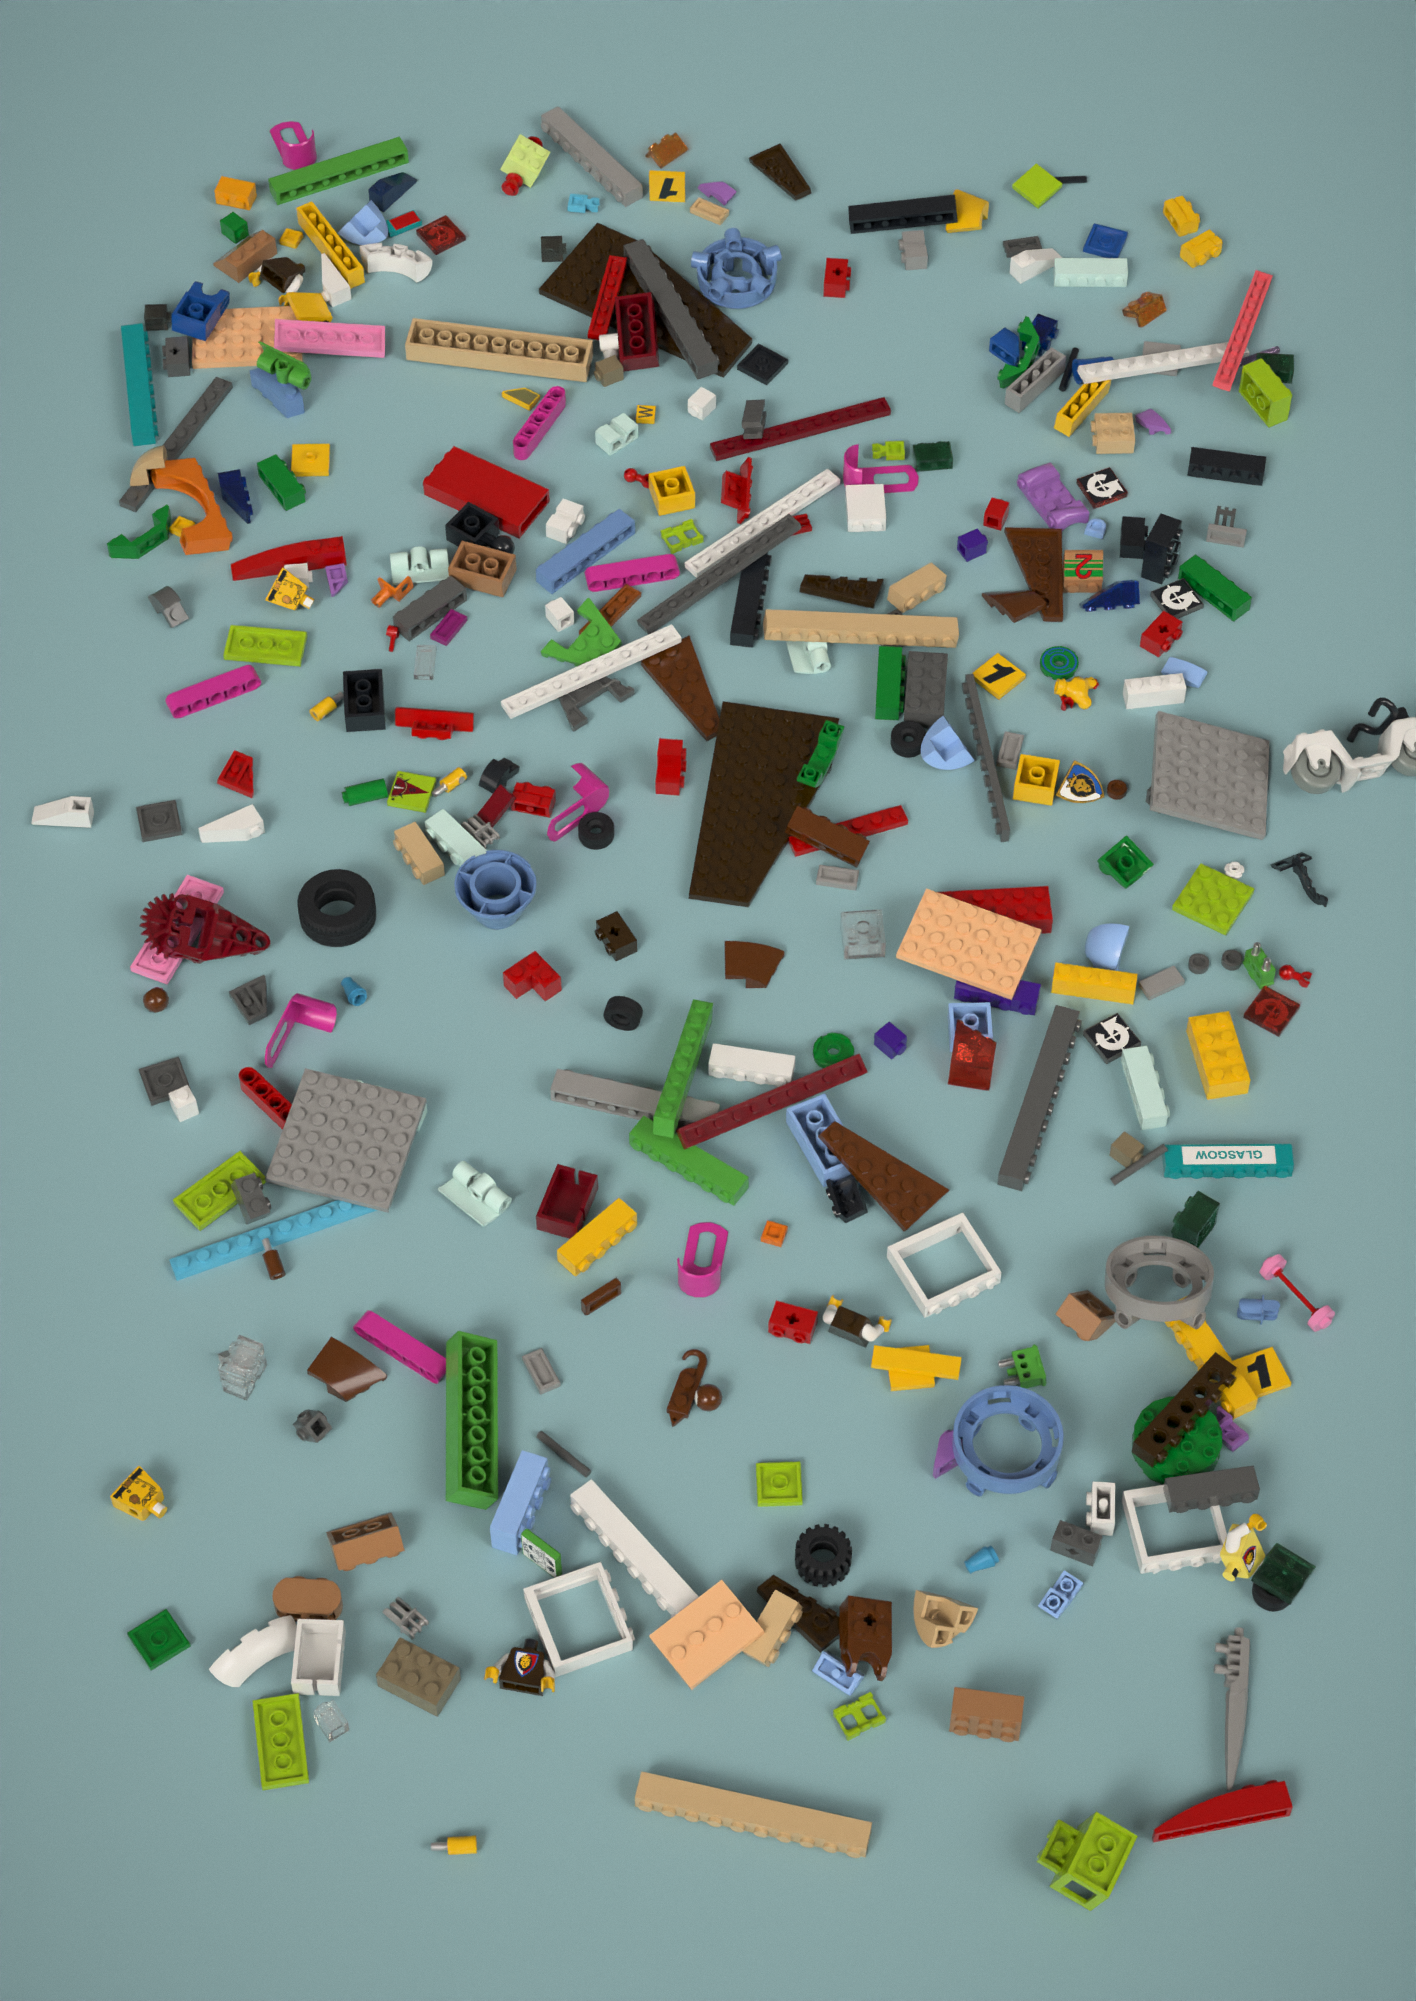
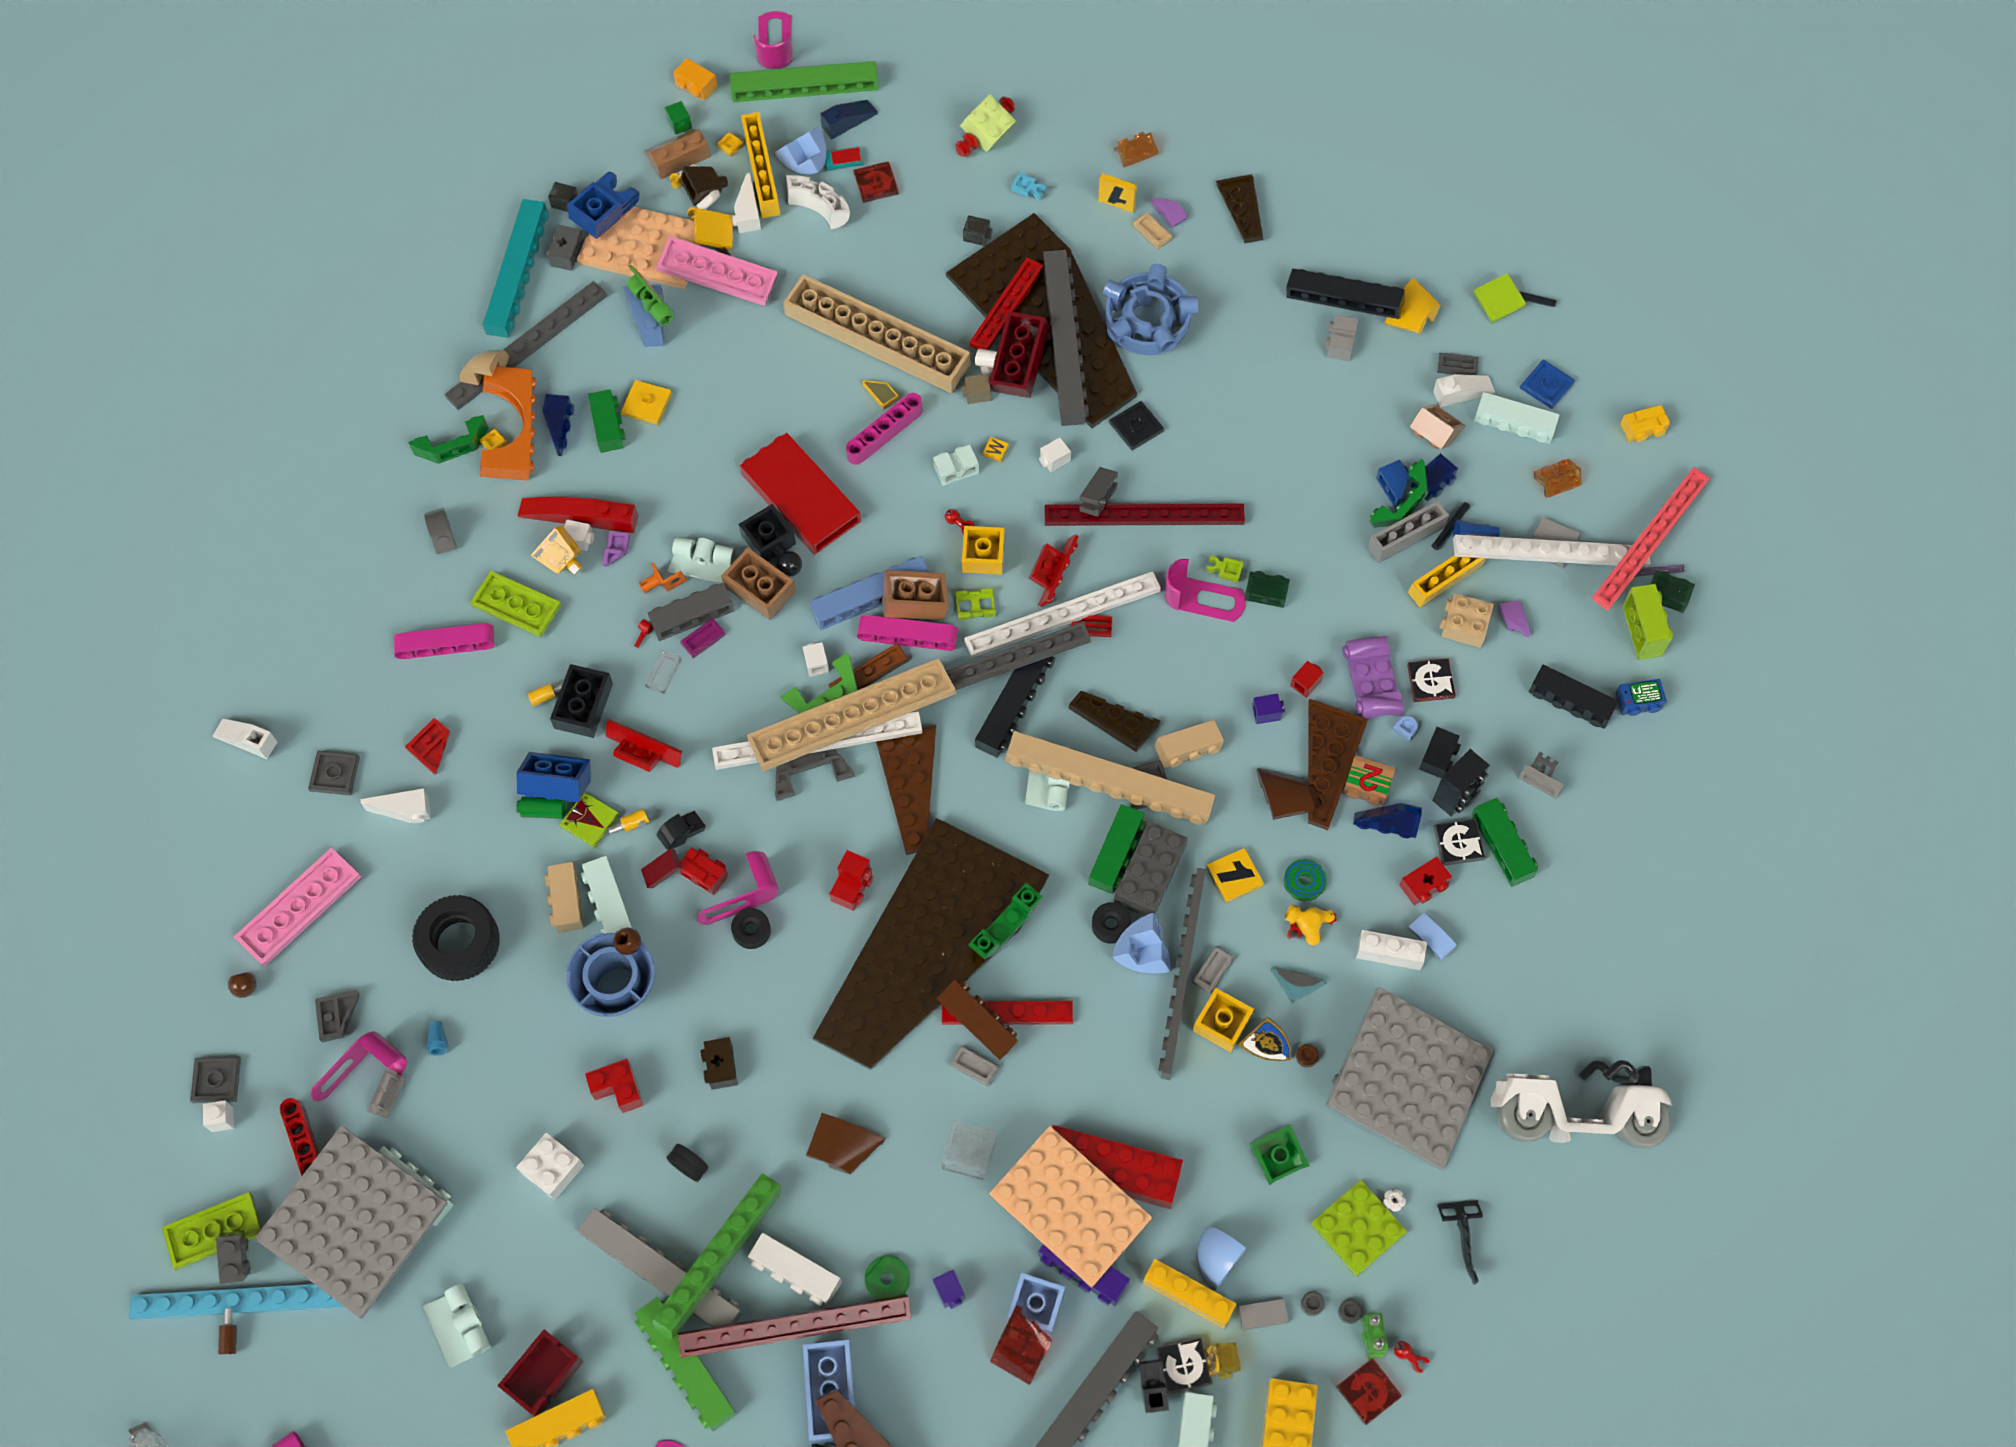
camera: 20 degrees right, 10 degrees up
(217, 933) = (326, 930): dark red connector -> none
(327, 1044) = (386, 1093): none -> light grey hinge
(368, 762) = (553, 777): none -> blue brick
(480, 830) = (635, 893): light grey arm -> none
(502, 850) = (627, 941): none -> reddish brown piece
(502, 1053) = (550, 1166): none -> white brick
(565, 521) = (864, 552): white brick -> none
(591, 156) = (1057, 135): light grey brick -> none
(614, 640) = (850, 714): none -> tan plate
(628, 539) = (914, 595): none -> medium nougat slope
(836, 278) = (1249, 346): red brick -> none
(865, 508) = (1173, 630): white brick -> none
(1024, 296) = (1436, 426): none -> slope
(1085, 740) = (1297, 984): none -> tile
(1094, 1058) = (1153, 1386): none -> black brick
(1142, 1020) = (1222, 1360): none -> clear yellow brick
(1181, 215) = (1638, 377): yellow brick -> none
(1283, 451) = (1640, 697): none -> brick

